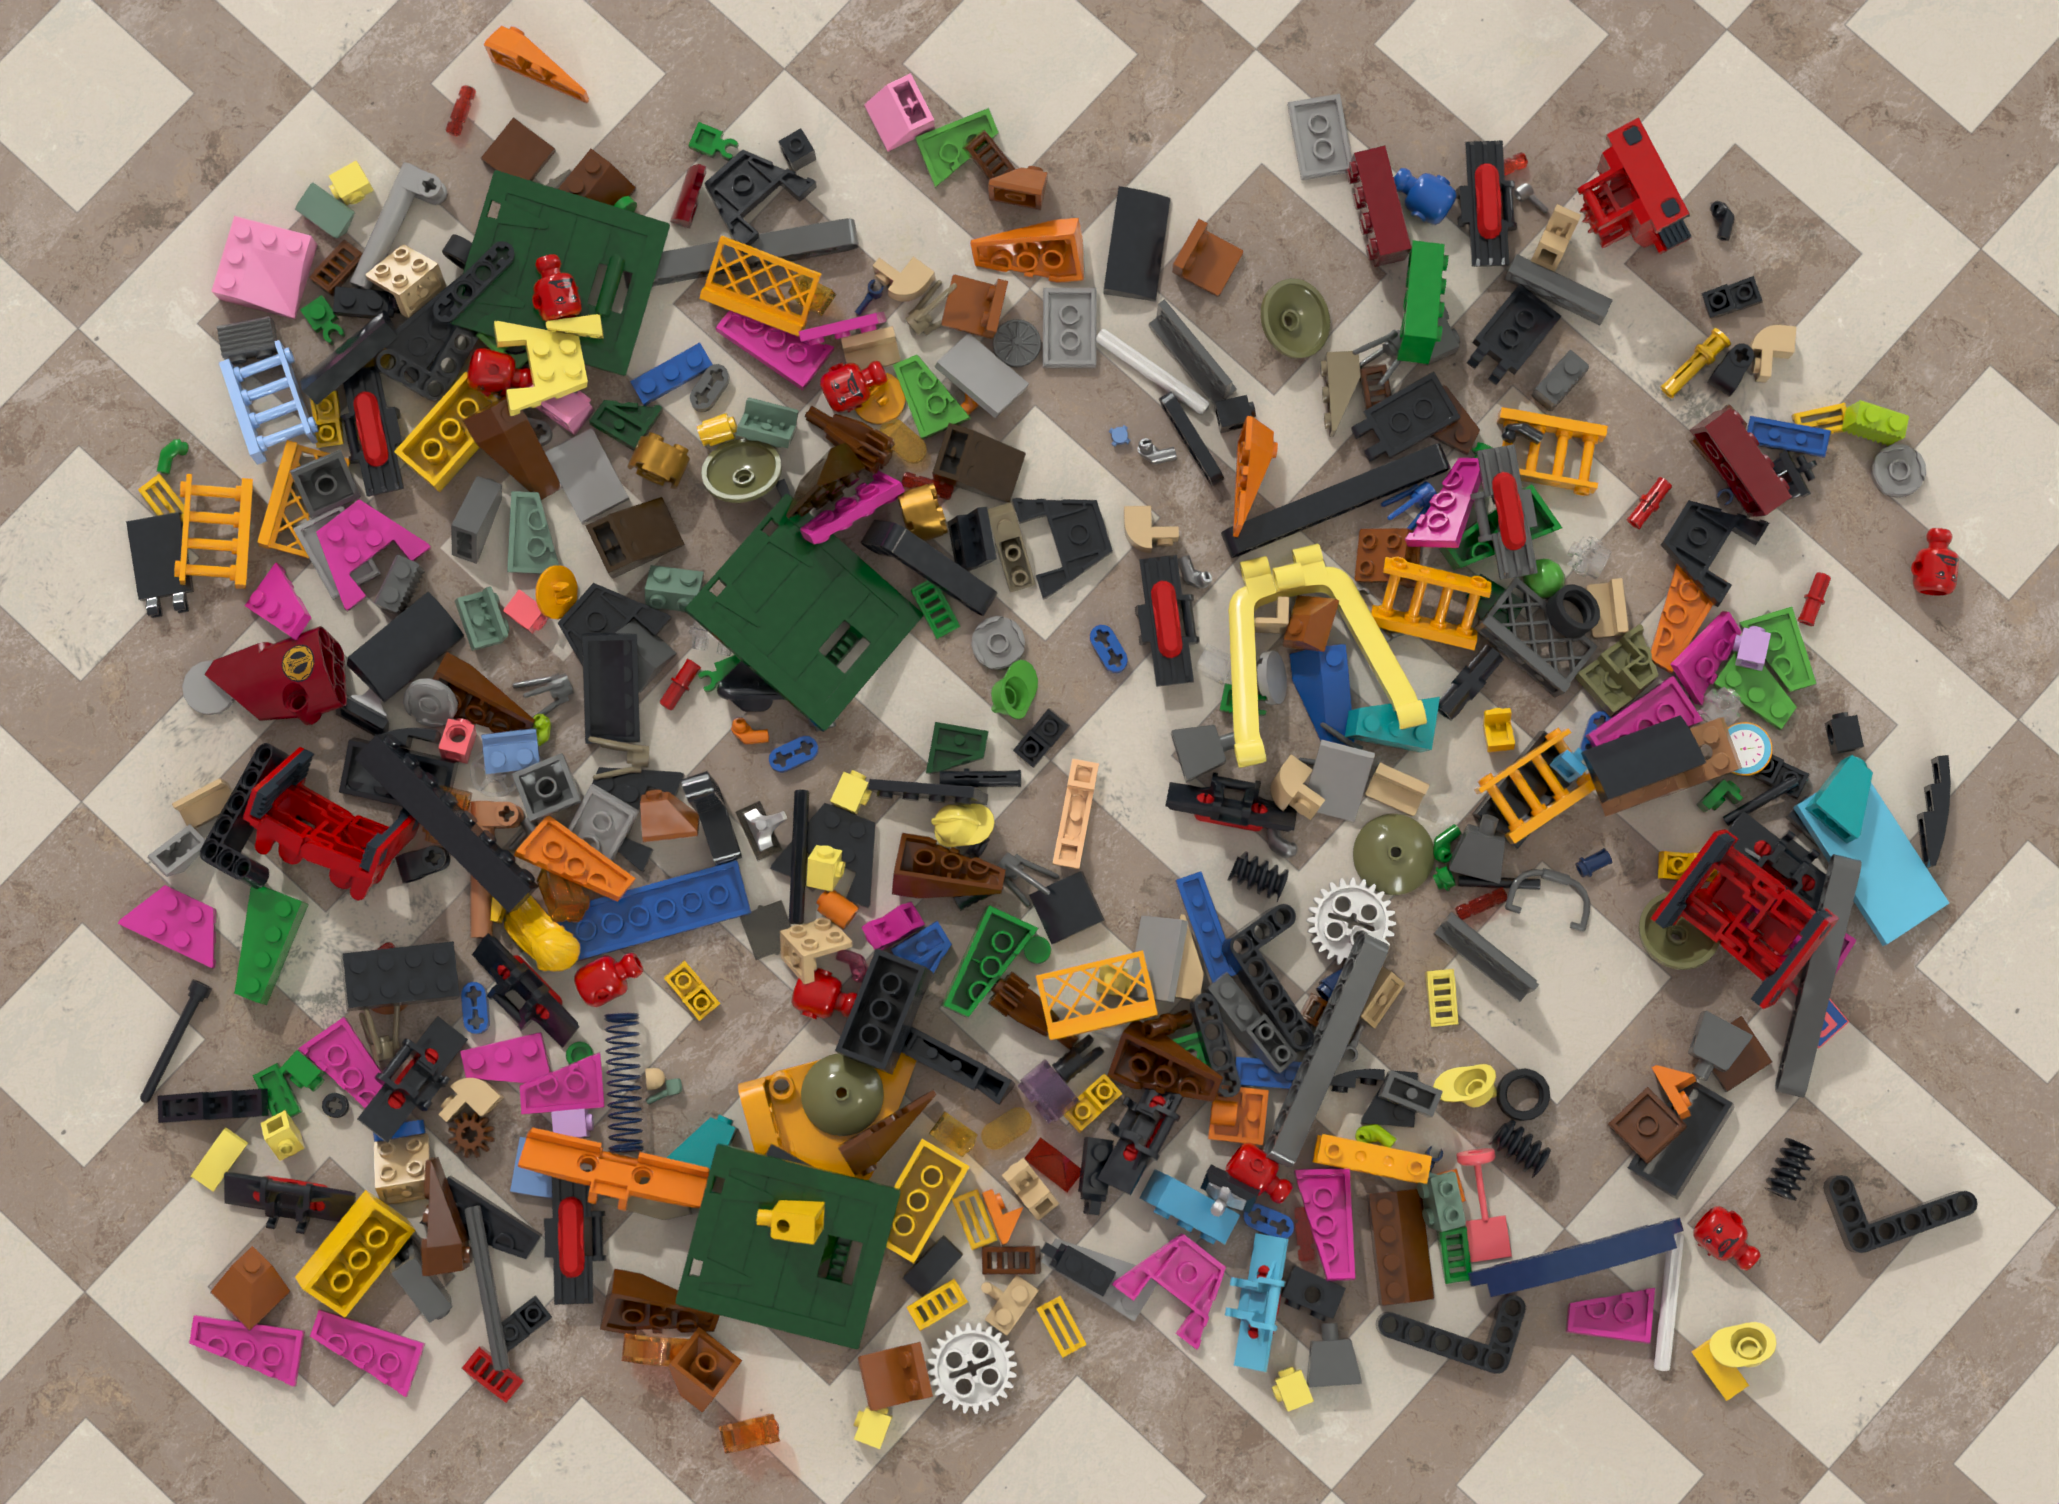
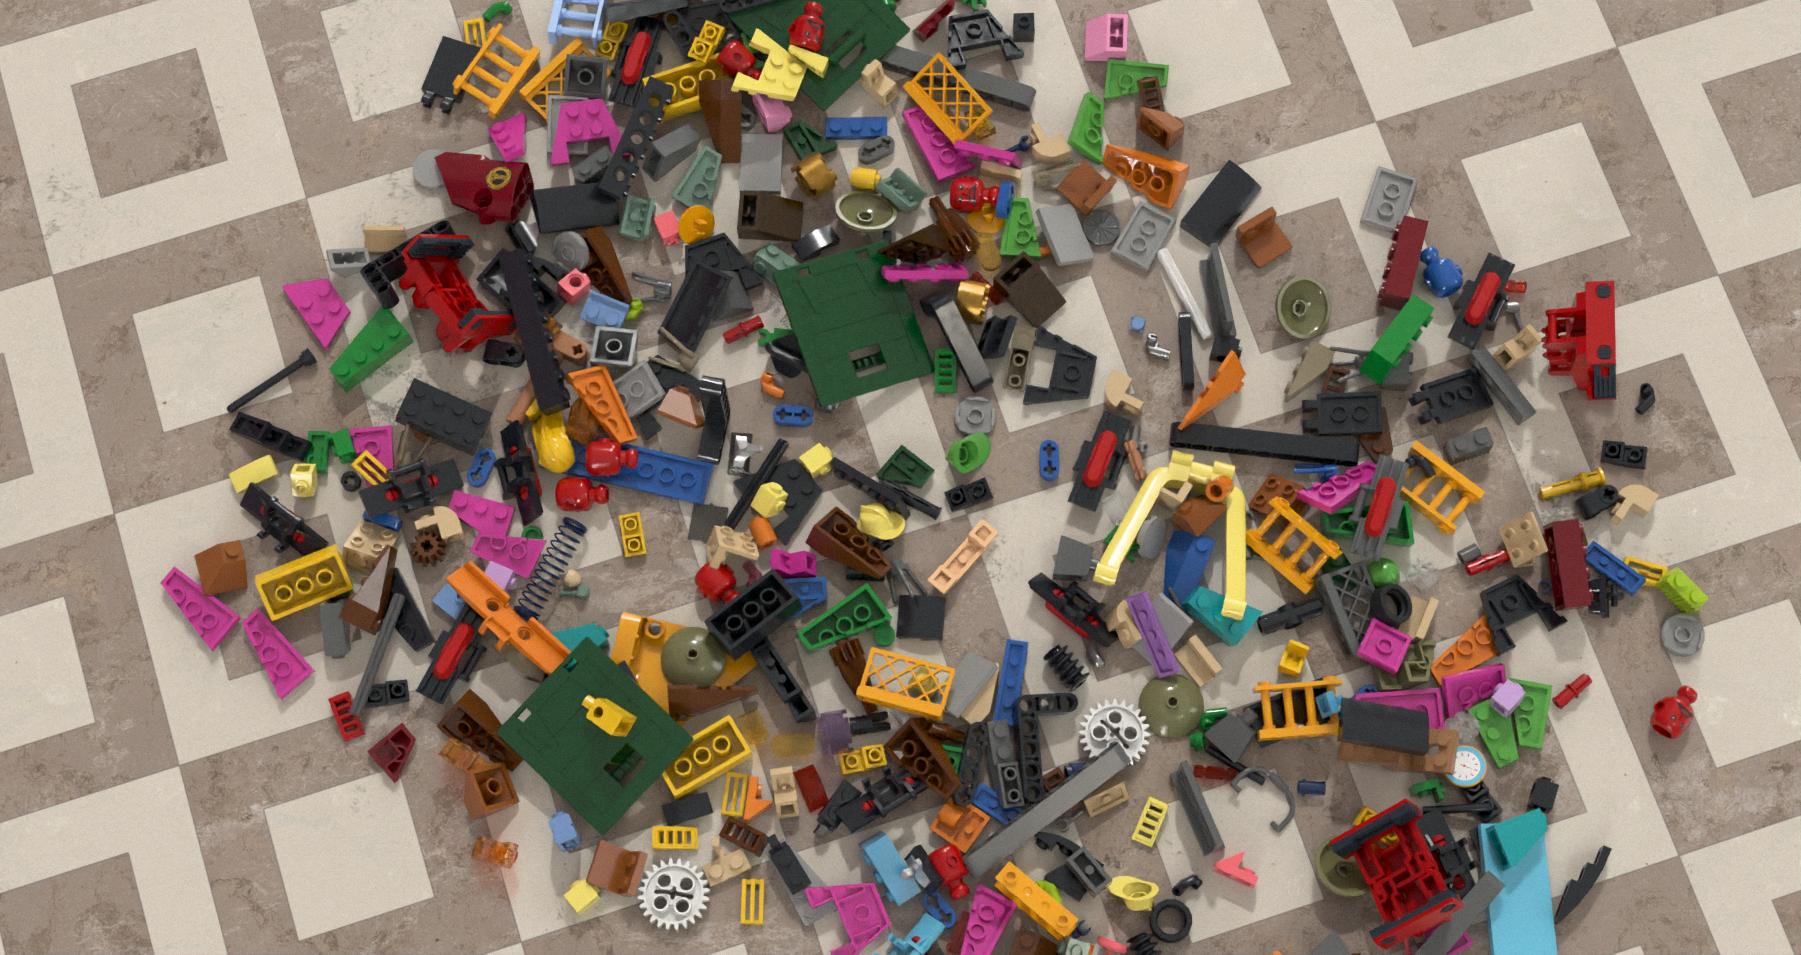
camera: 30 degrees right, 10 degrees down
(333, 1076) = (360, 459): none -> yellow tile
(428, 599) = (653, 89): none -> black brick
(444, 367) = (707, 42): none -> yellow slope
(568, 1383) = (393, 751): none -> dark red slope
(615, 923) = (607, 458): none -> red piece
(669, 309) = (878, 84): none -> tan brick
(703, 537) = (814, 242): none -> black slope
(813, 1368) = (564, 831): none -> medium blue brick
(892, 371) = (1005, 199): none -> blue beam
(937, 236) = (1087, 128): none -> bright green wing
(1205, 597) = (1135, 460): none -> nougat axle
(1319, 584) = (1219, 488): none -> orange brick
(1334, 789) = (1152, 634): none -> medium lavender tile
(1514, 1047) = (1185, 883): none -> black arm
(1556, 1000) = (1229, 868): none -> coral slope
(1590, 663) = (1383, 646): none -> dark pink tile
(1624, 504) = (1469, 554): none -> dark grey hinge
(1678, 459) = (1523, 540): none -> tan bracket

